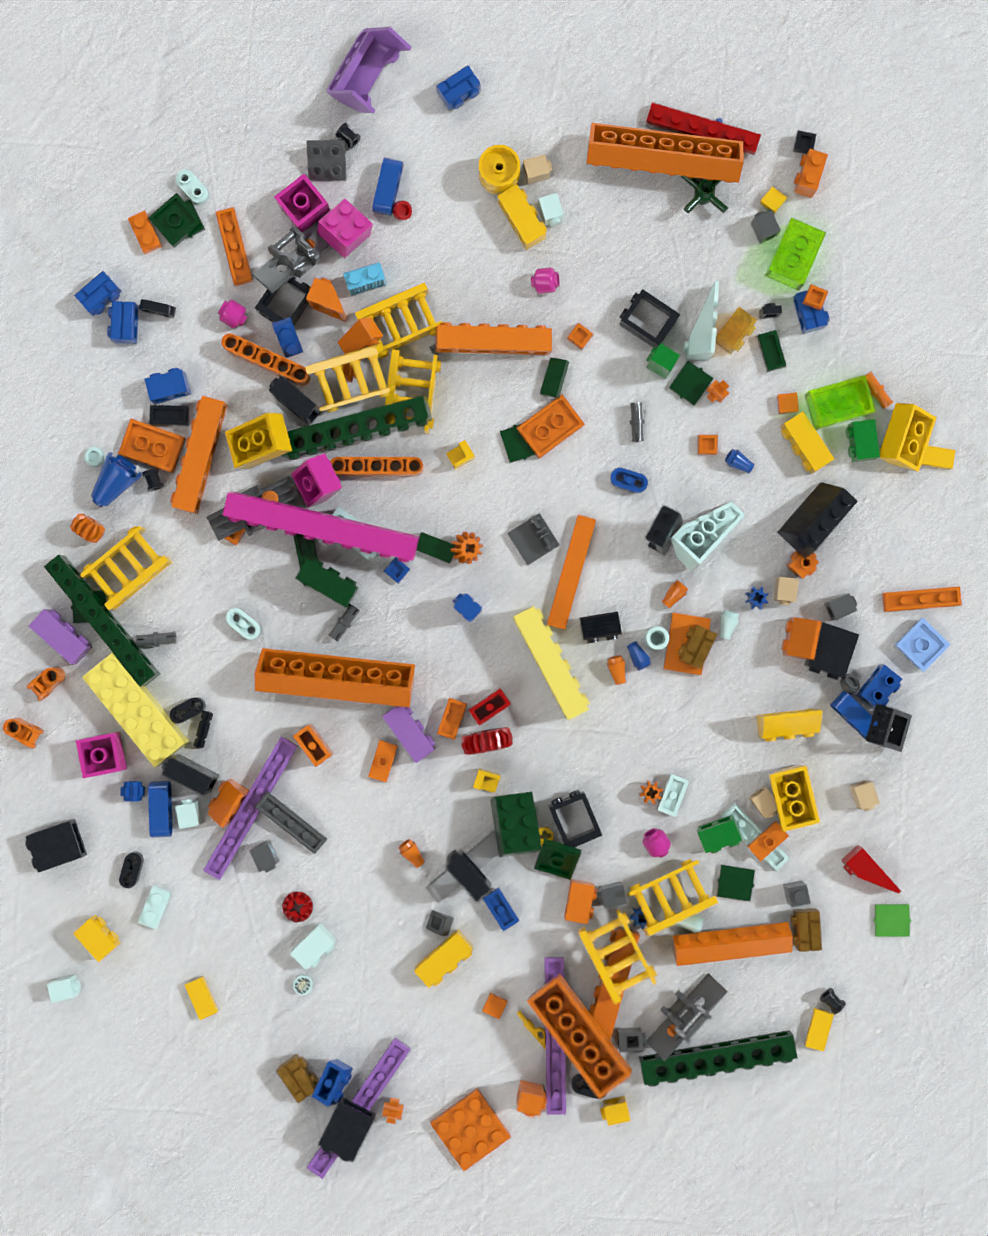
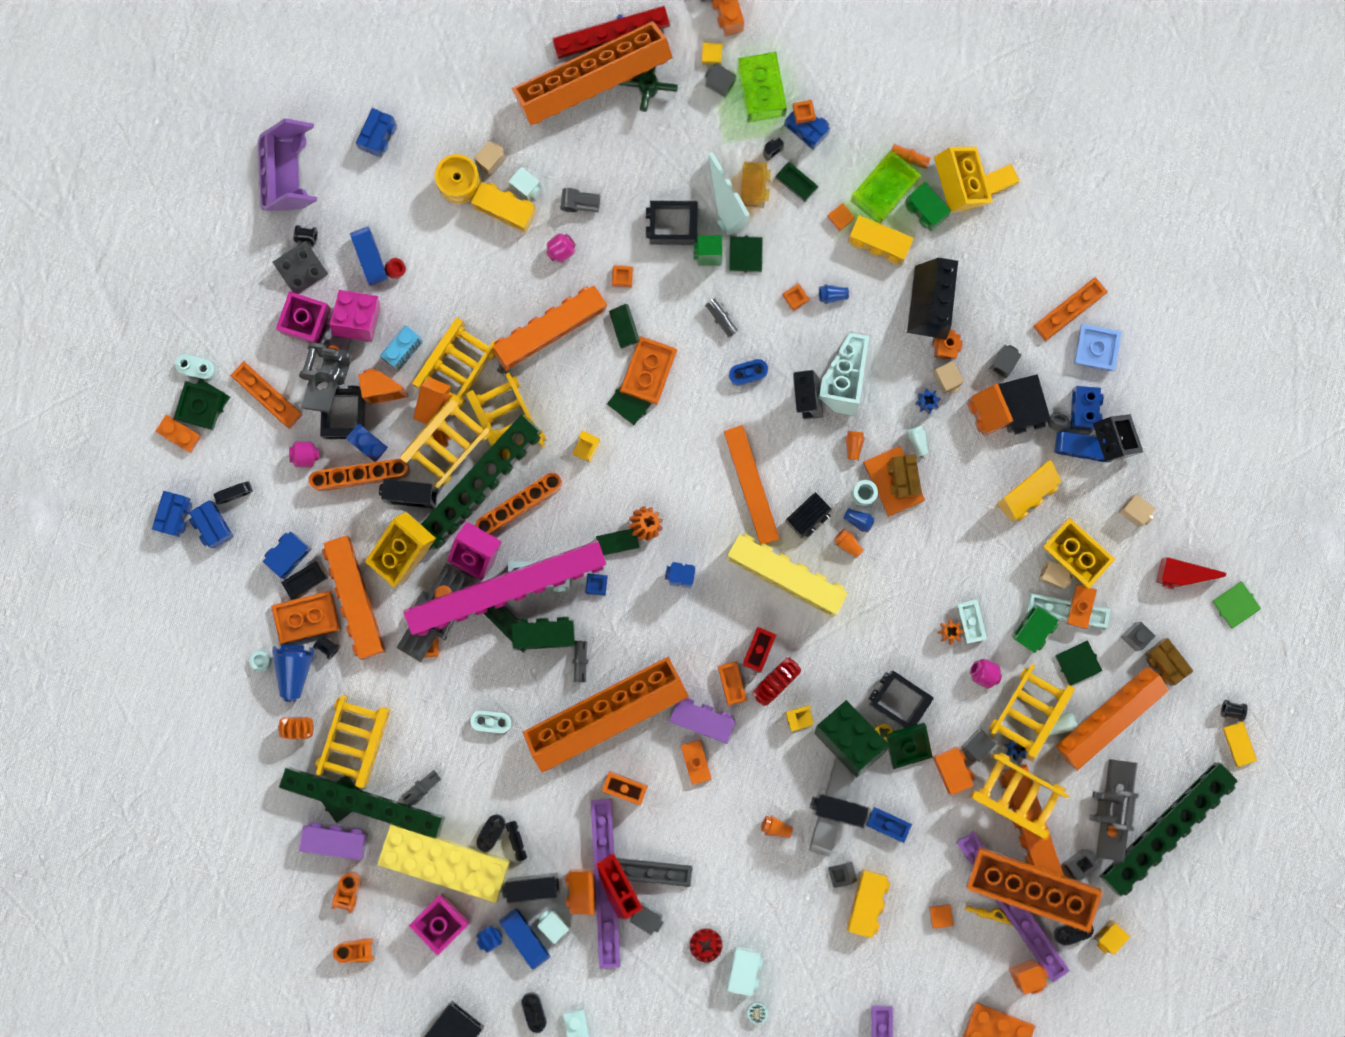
camera: 30 degrees left, 5 degrees down
(256, 819) = (618, 887): none -> red slope
(533, 539) = (699, 478): dark grey hinge -> none
(581, 248) = (574, 200): none -> dark grey piece
(717, 391) = (774, 245): orange gear -> none

